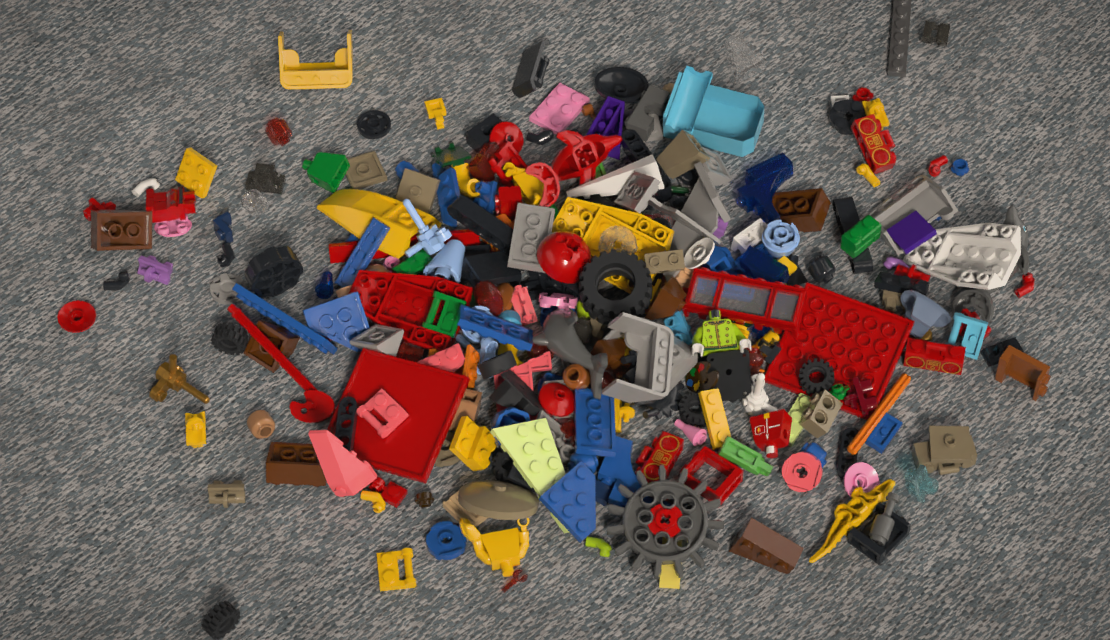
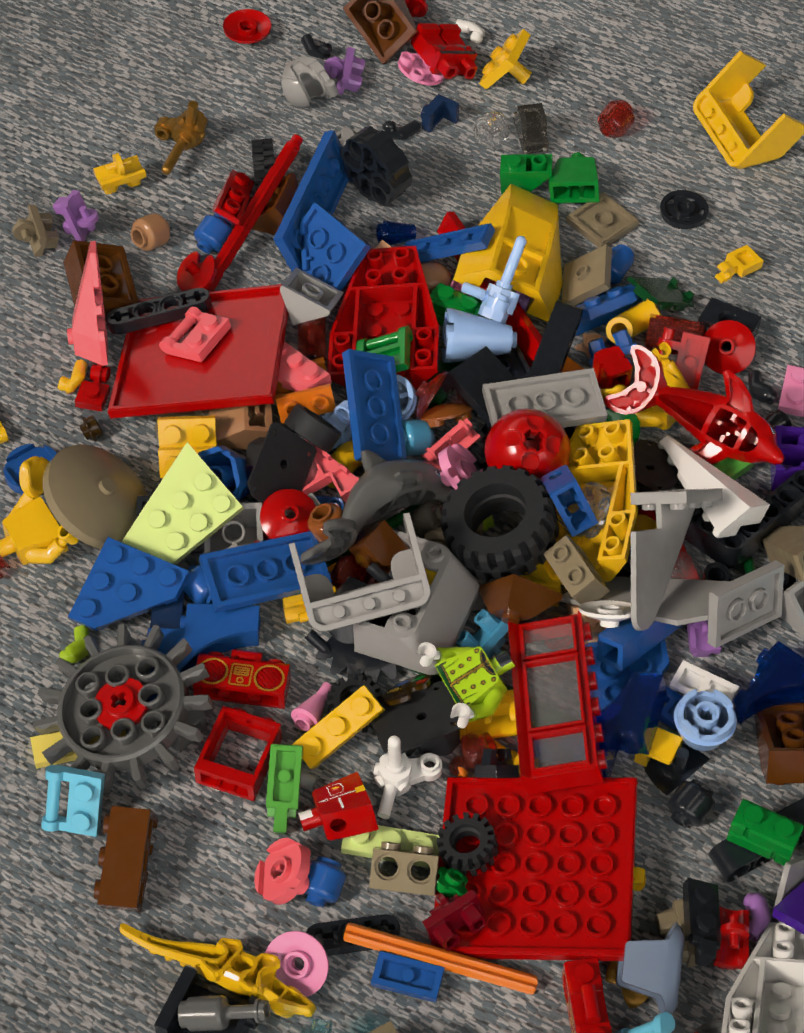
camera: 70 degrees right, 0 degrees up
(156, 293) = (305, 80): none -> light grey helmet
(230, 463) = (78, 218): none -> medium lavender hips
(261, 366) = (233, 197): none -> red slope
(279, 387) = (212, 233): none -> blue head
(308, 195) = (525, 170): none -> green slope
(615, 240) = (564, 492): none -> blue torso
(724, 561) = (84, 800): none -> medium azure plate

